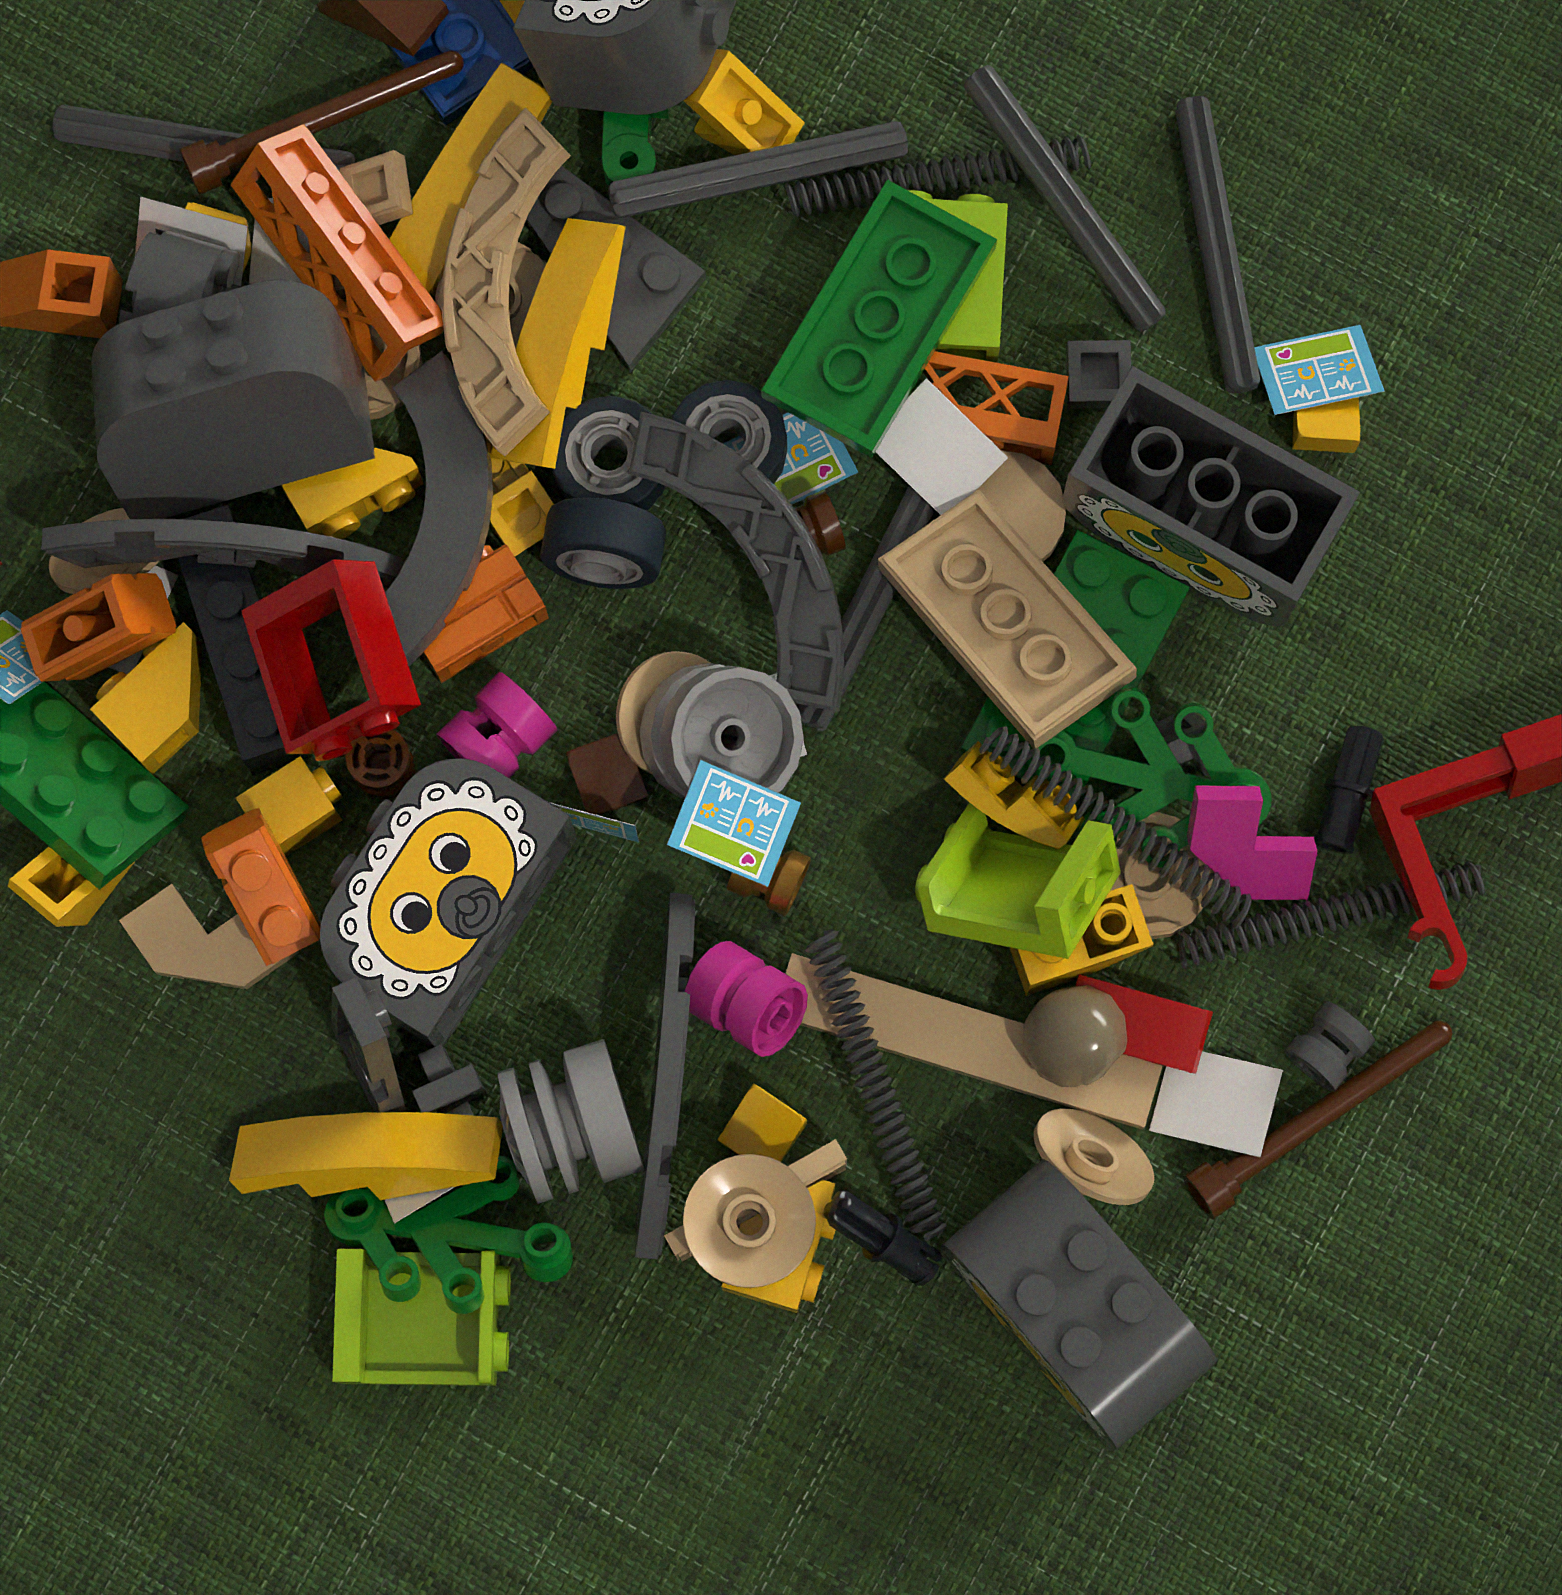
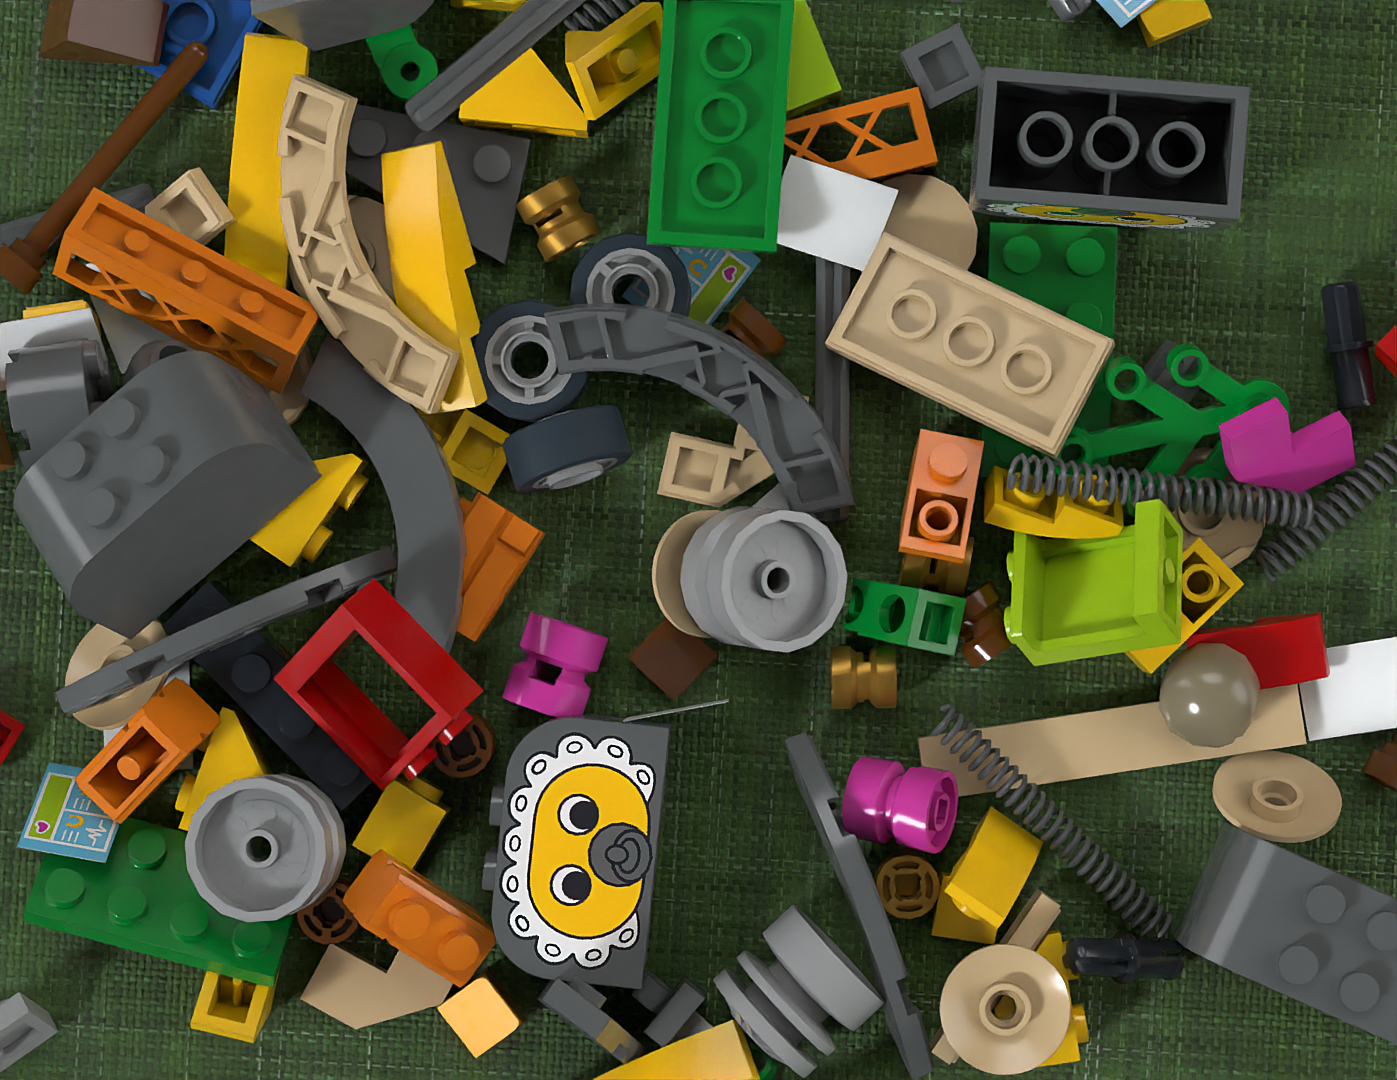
camera: 30 degrees left, 10 degrees up
(157, 751) = (227, 854): none -> light grey wheel
(193, 867) = (340, 920): none -> reddish brown wheel
(275, 1013) = (482, 1013): none -> slope
(696, 347) = (565, 231): none -> pearl gold wheel
(716, 234) = (525, 100): none -> yellow slope
(720, 1088) = (899, 877): none -> pearl gold wheel
(723, 631) = (712, 470): none -> tan tile
(733, 823) = (816, 657): sticker -> none
(801, 1095) = (993, 868): none -> yellow slope
(809, 232) = (616, 60): none -> yellow slope
(838, 832) = (905, 615): none -> green leg
(895, 871) = (983, 626): none -> reddish brown wheel
(897, 809) = (947, 575): none -> pearl gold wheel
(917, 736) = (940, 496): none -> orange slope

